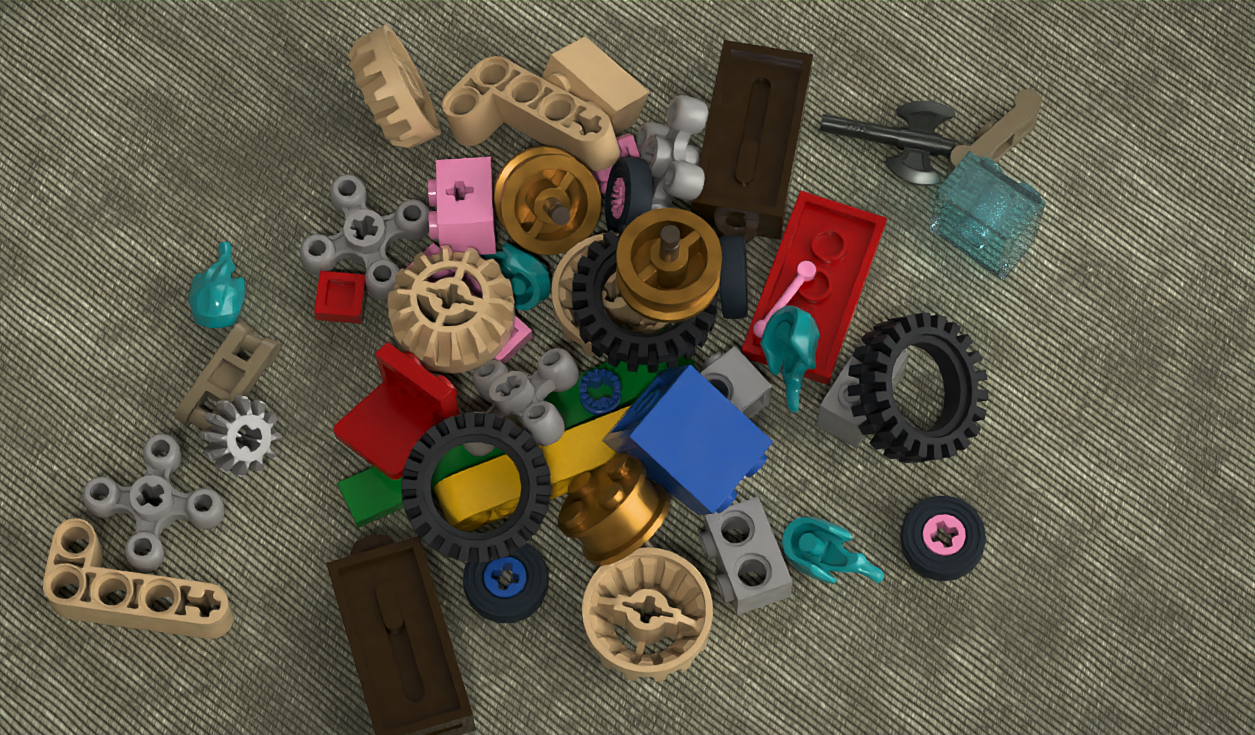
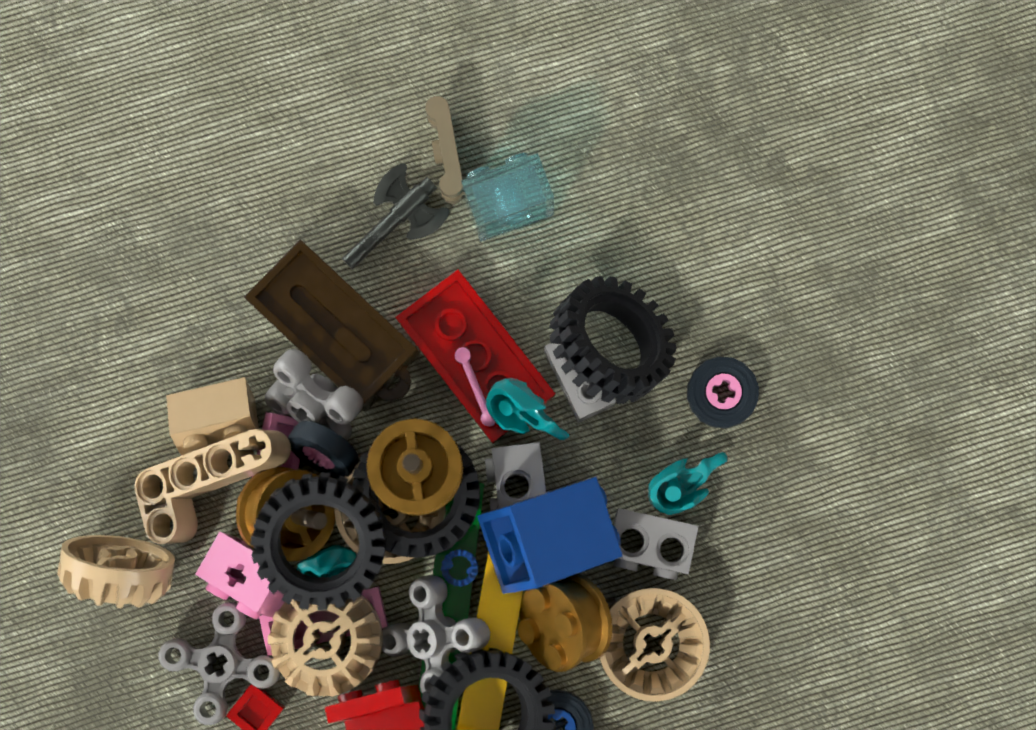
camera: 55 degrees left, 15 degrees up
(508, 186) = (306, 588): none -> black tyre
(733, 277) = (435, 412): black bush -> none

